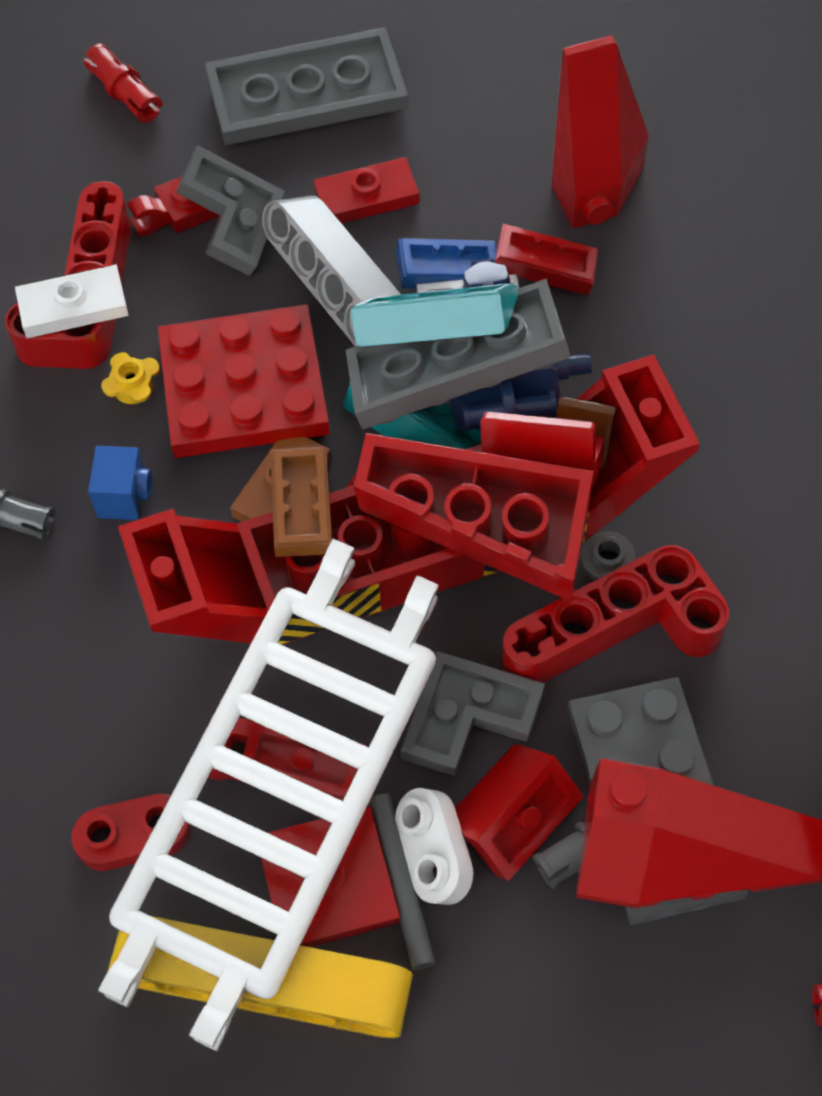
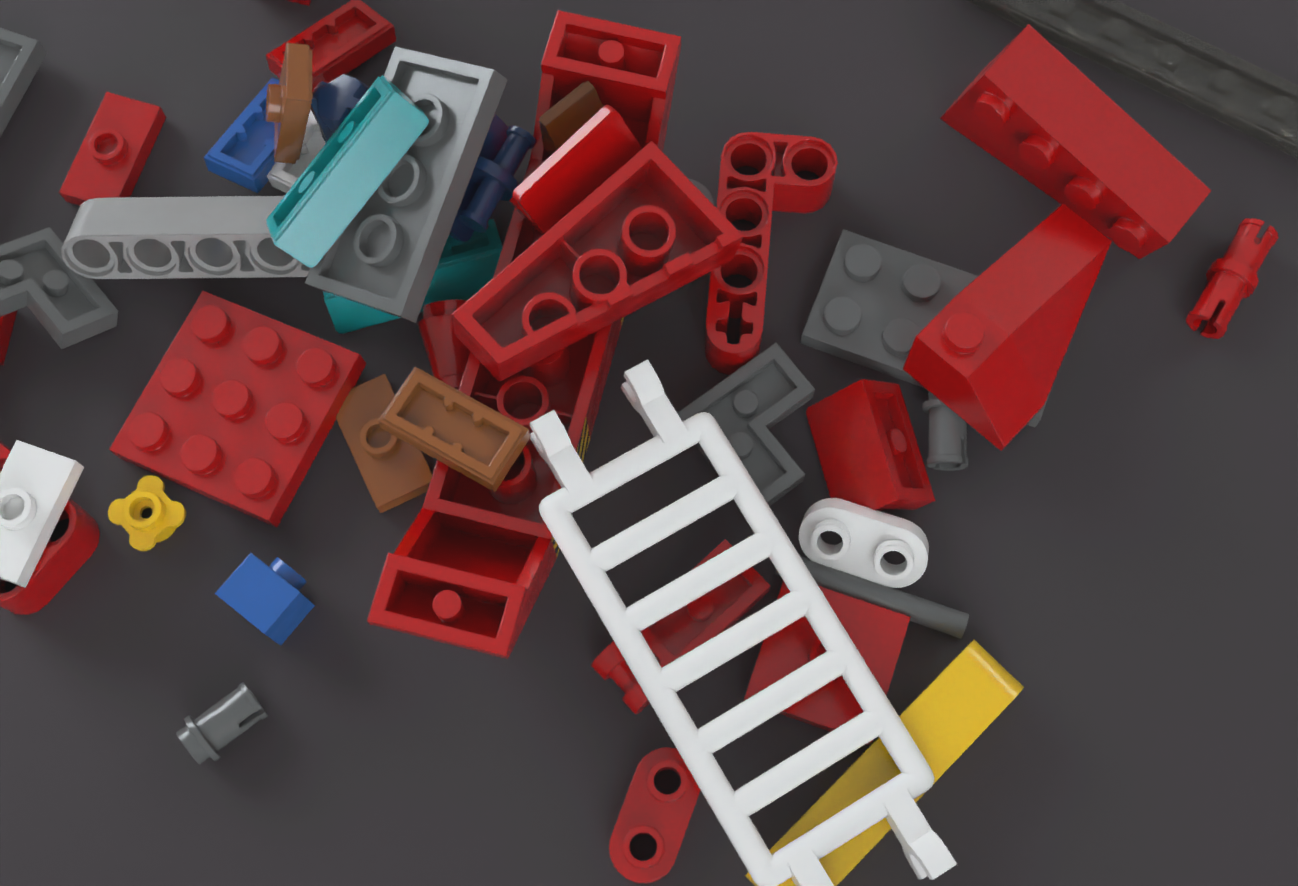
camera: 55 degrees left, 10 degrees up
(462, 250) = (290, 103): none -> dark orange plate

